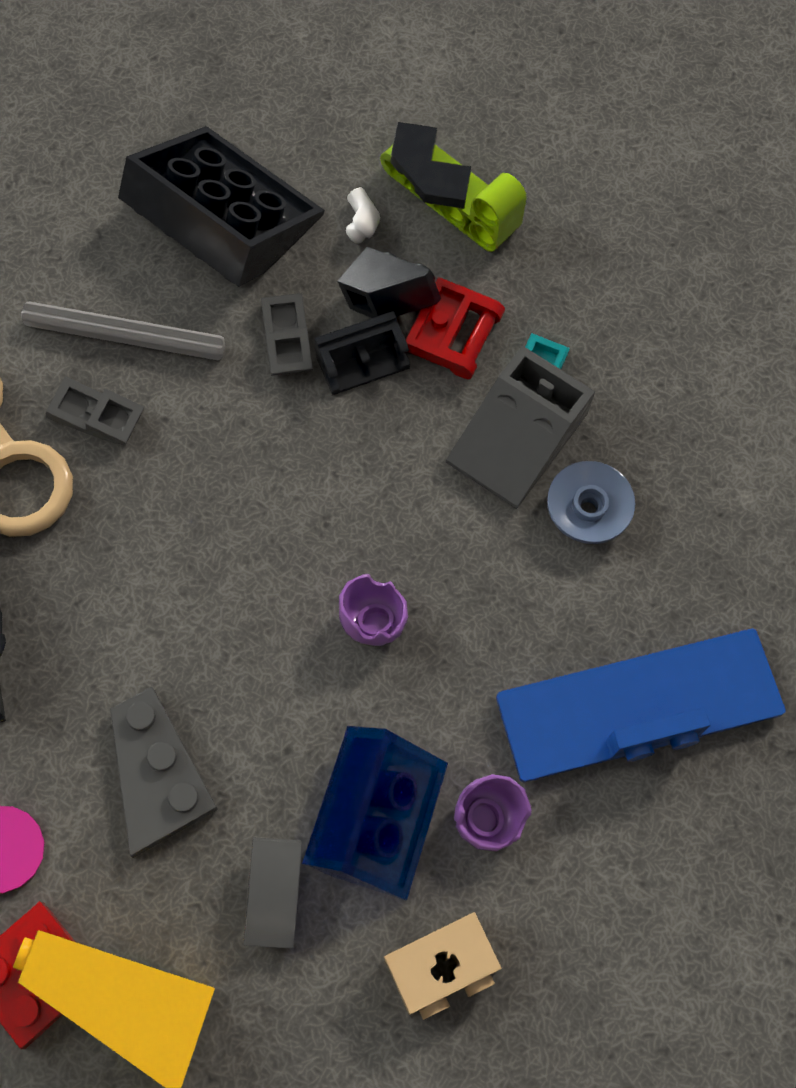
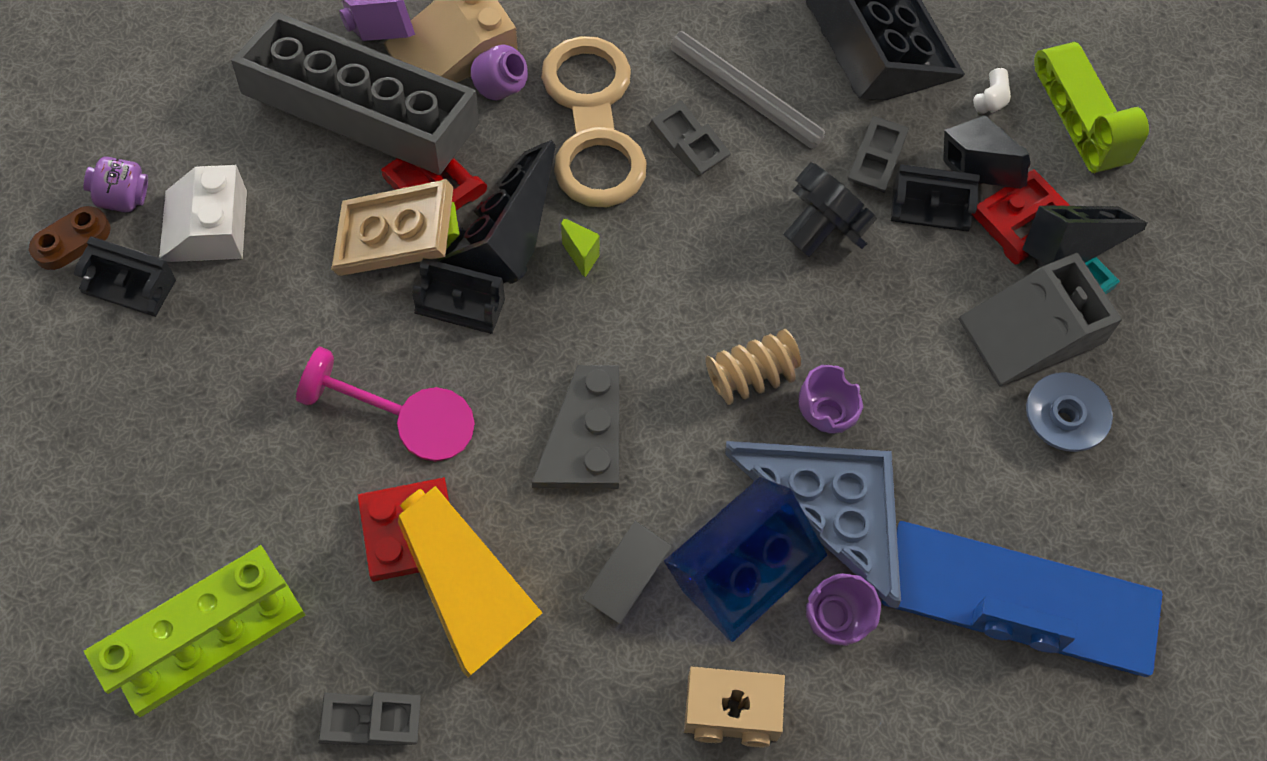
camera: 30 degrees right, 5 degrees down
(46, 581) = (581, 245): none -> lime slope
(269, 419) = (828, 208): none -> black piece
(282, 616) = (754, 364): none -> tan piece
(432, 701) = (844, 499): none -> sand blue tile
(433, 180) = (1070, 87): black tile -> none
(511, 321) = (1080, 230): none -> black slope

